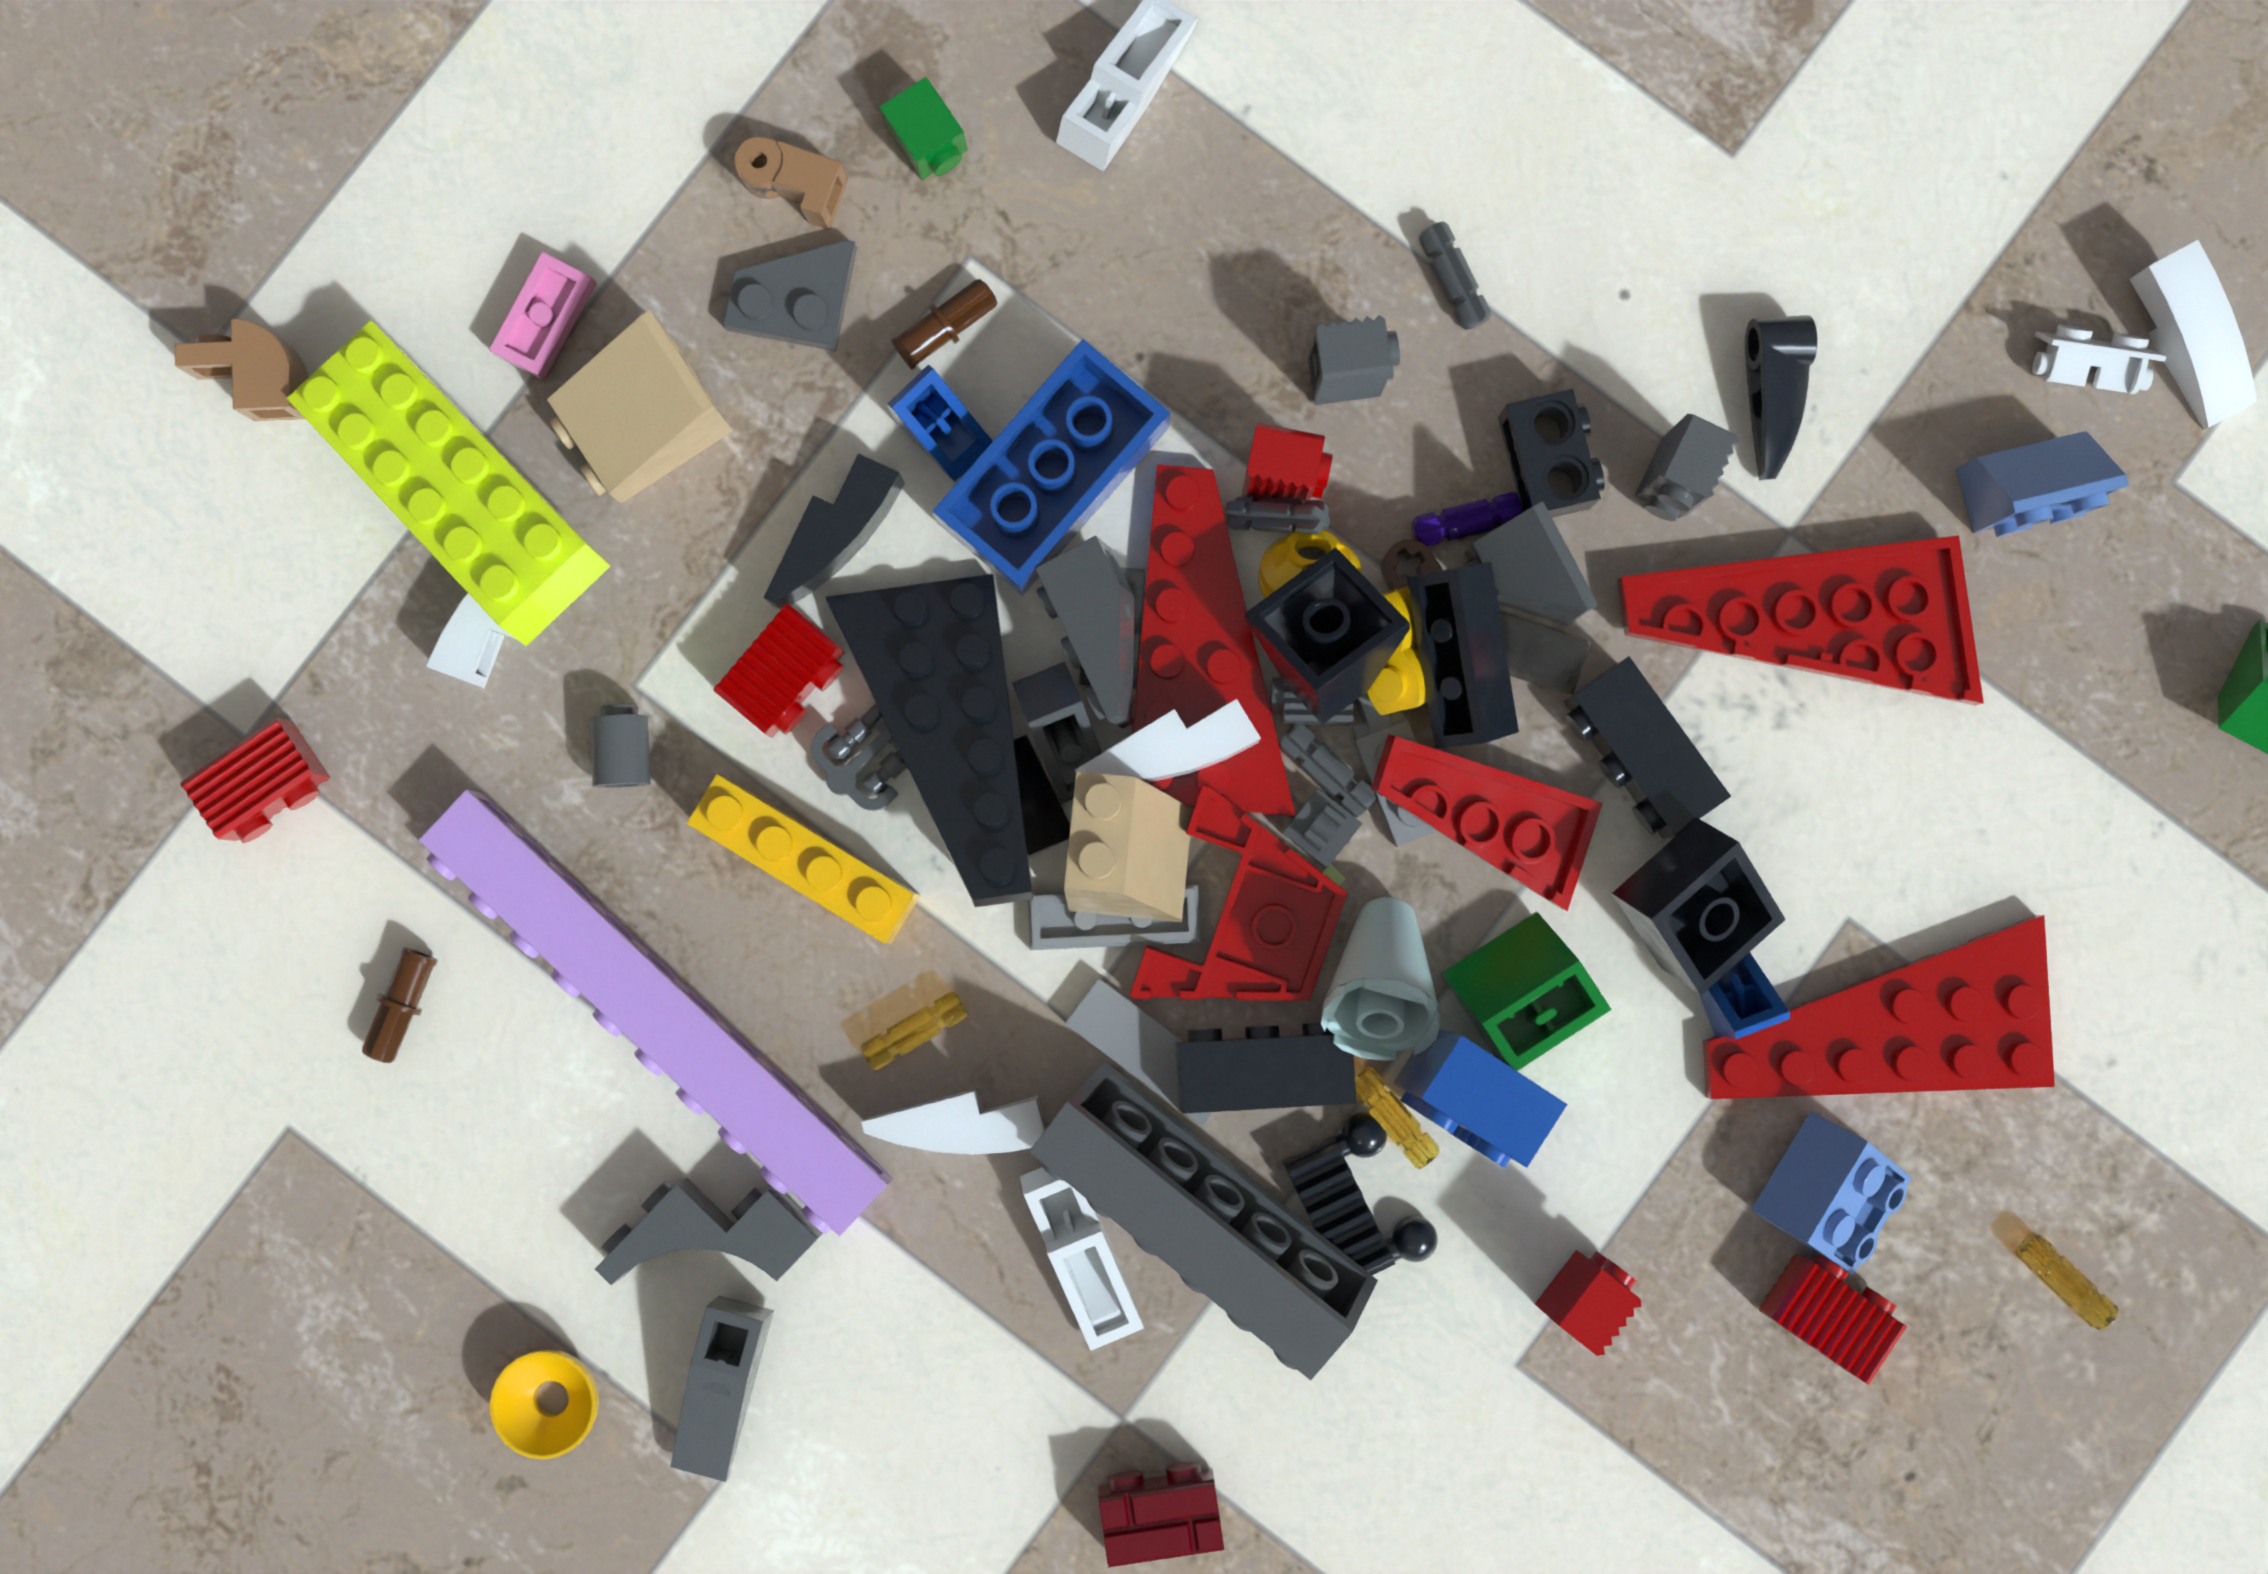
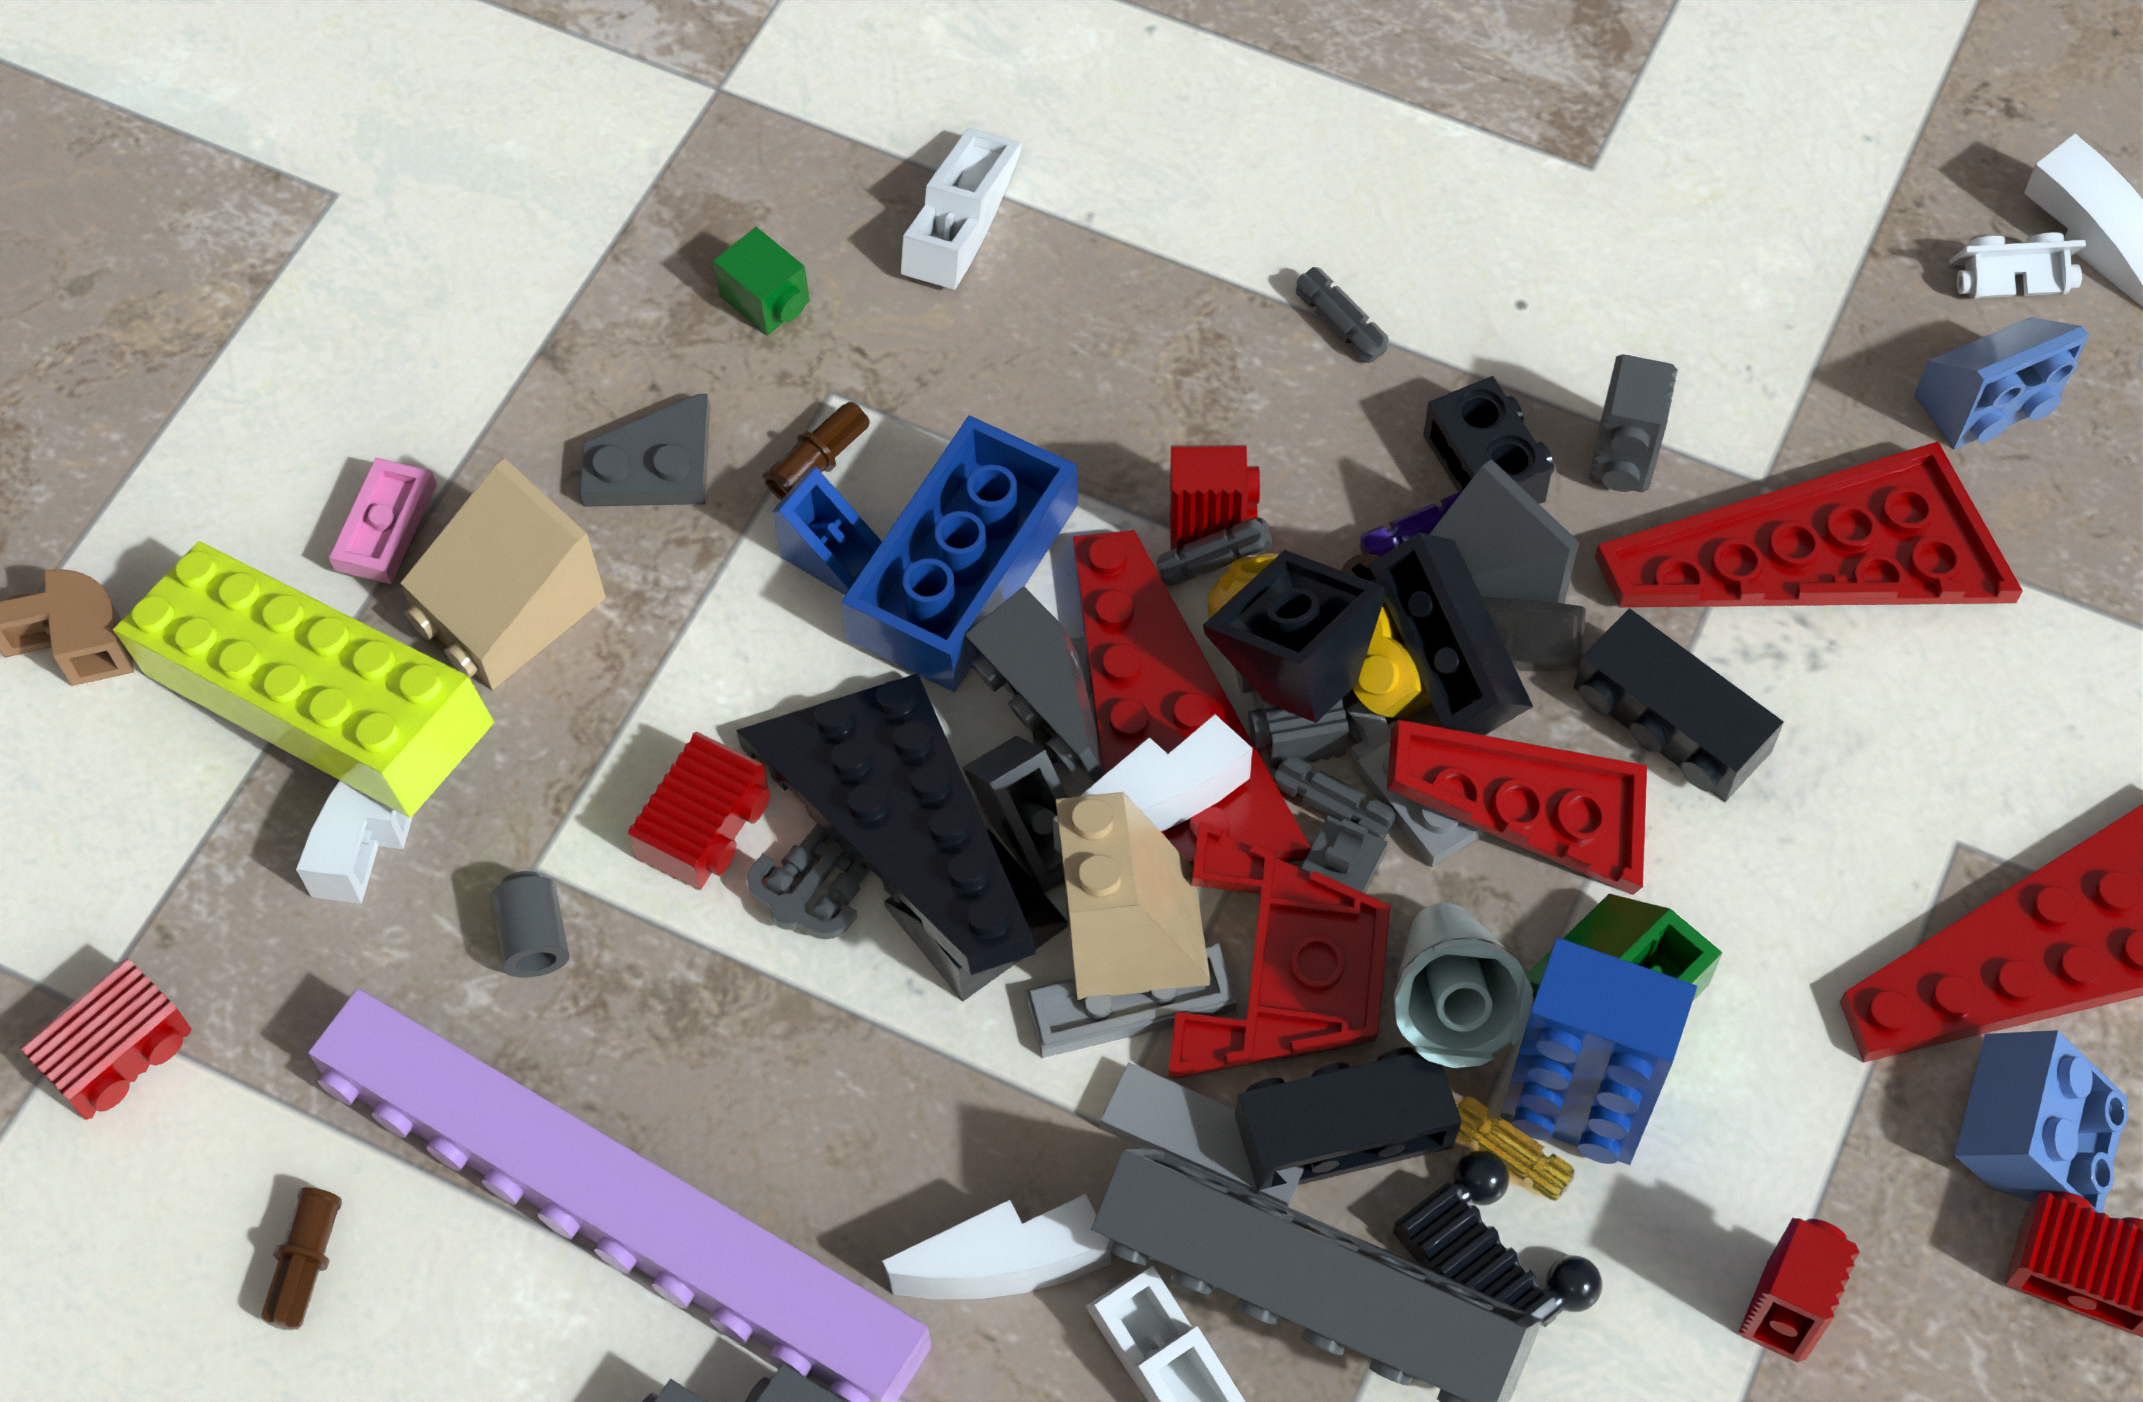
camera: 10 degrees left, 25 degrees down
(783, 170) = (631, 347): medium nougat leg -> none
(803, 859) = (762, 996): yellow brick -> none
(834, 532) = (737, 659): black slope -> none
(914, 1030) = (924, 1166): clear yellow axle -> none
(1352, 360) = (1255, 390): dark grey brick -> none
(1699, 905) = (1785, 836): black brick -> none
(1743, 1001) = (1856, 929): blue slope -> none
(1777, 380) = (1701, 342): black piece -> none

